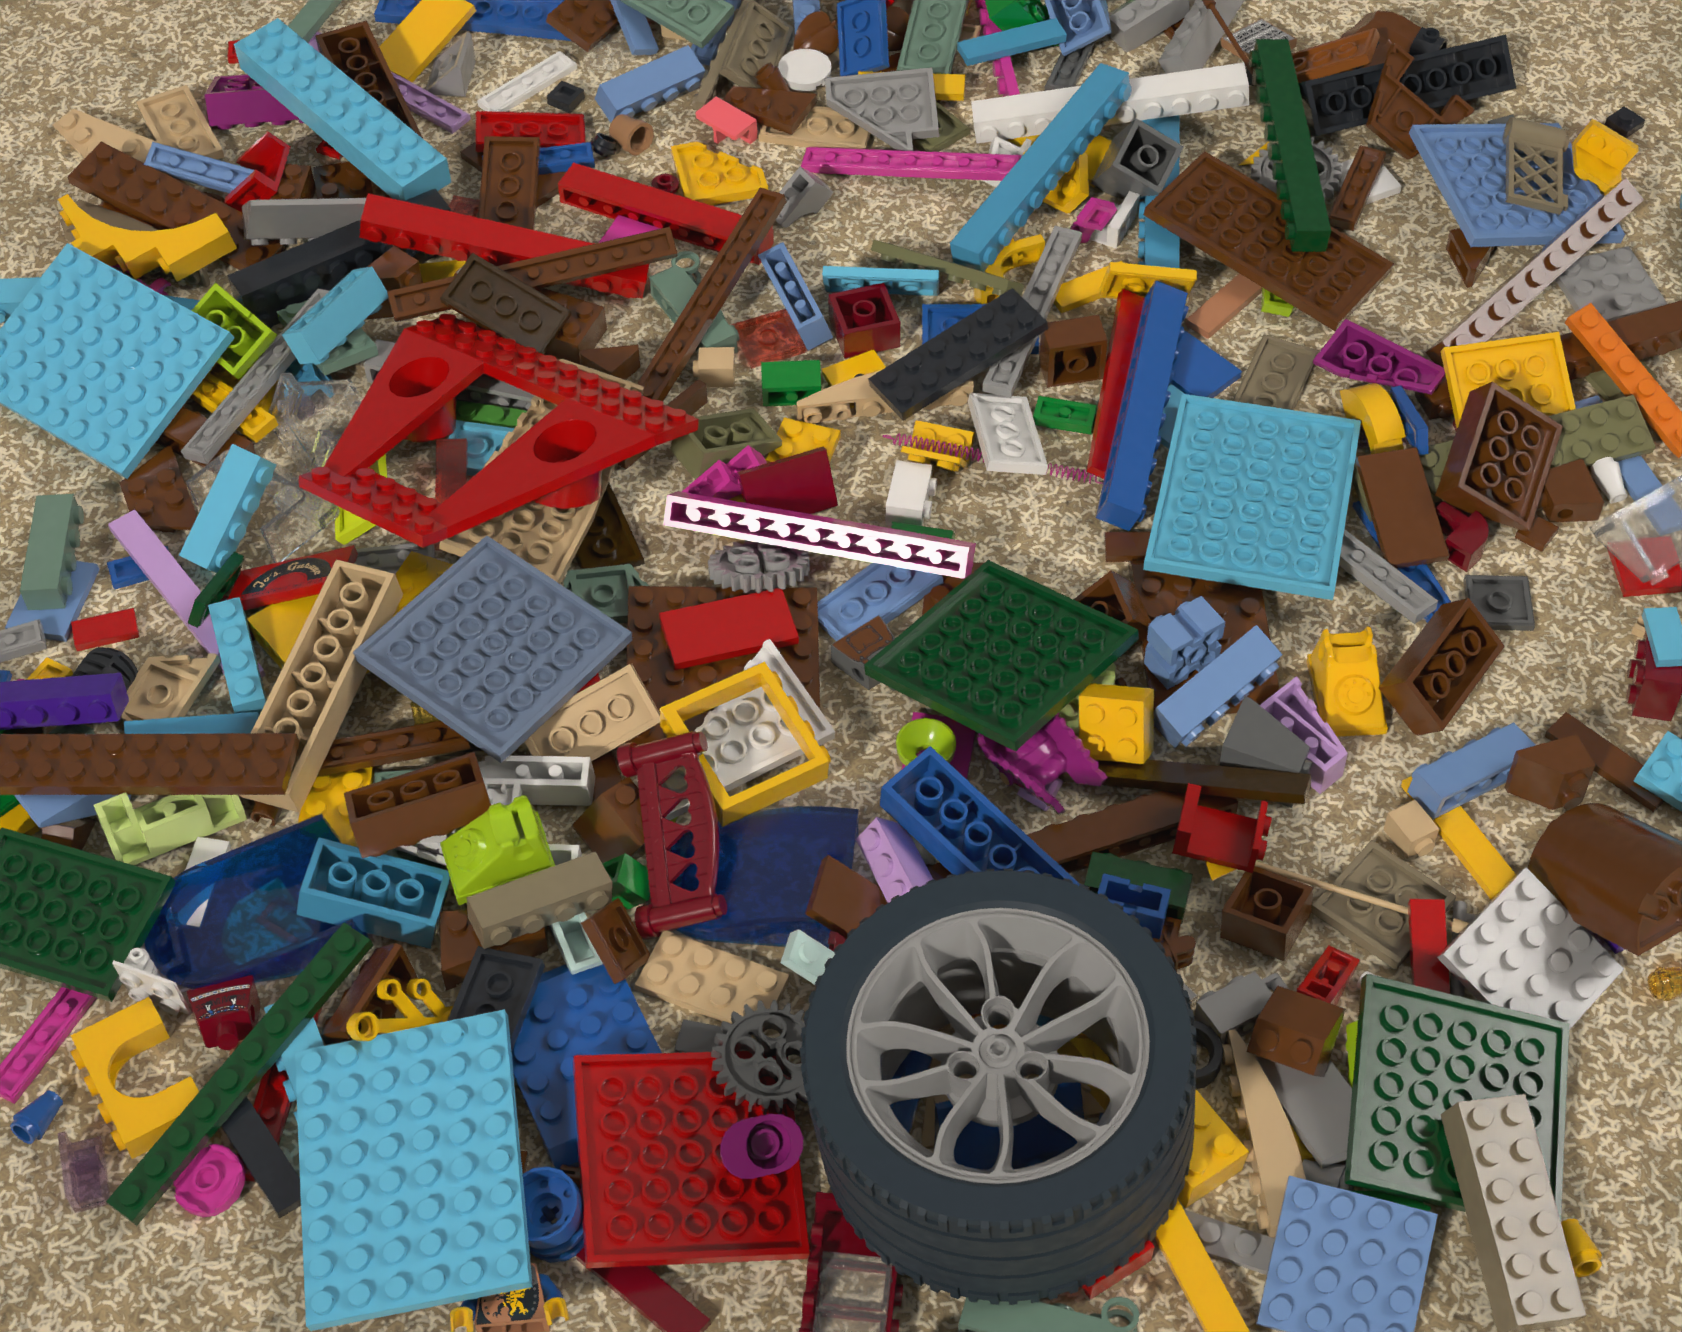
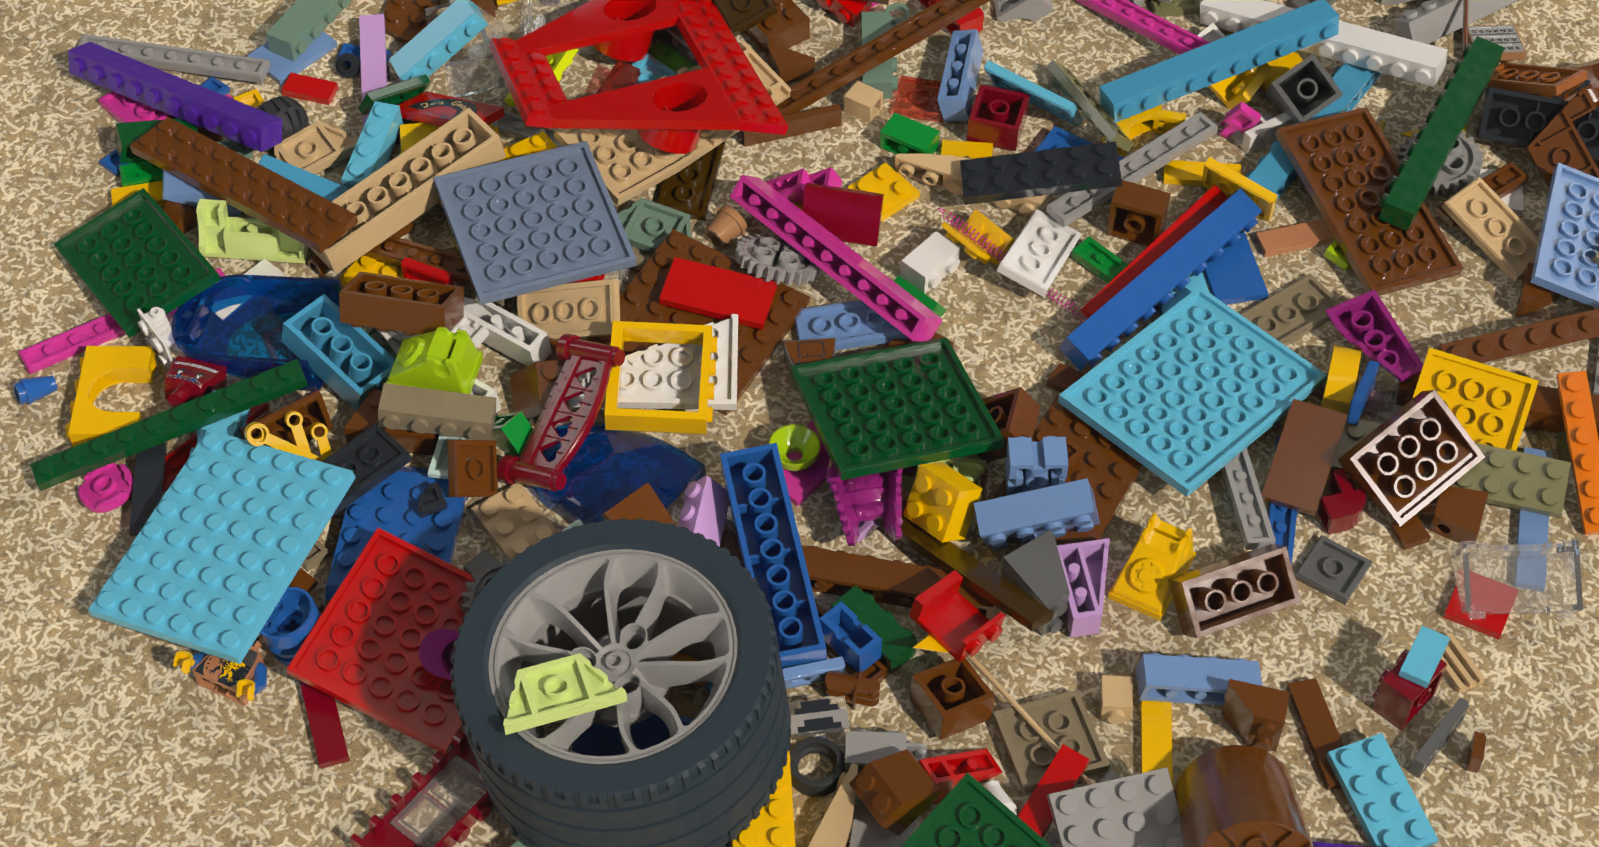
camera: 30 degrees right, 0 degrees up
(84, 1172) = (34, 437): panel -> none
(122, 584) = (355, 65): none -> black plate
(400, 762) = (419, 271): none -> red tile
(598, 997) = (431, 501): none -> black tile
(675, 558) = (725, 227): none -> medium nougat piece
(722, 438) = (820, 151): olive slope -> none
(977, 1112) = (559, 692): none -> yellowish green wing
(1395, 213) = (1493, 227): none -> tan tile
(1608, 477) = (1505, 519): white cone -> none

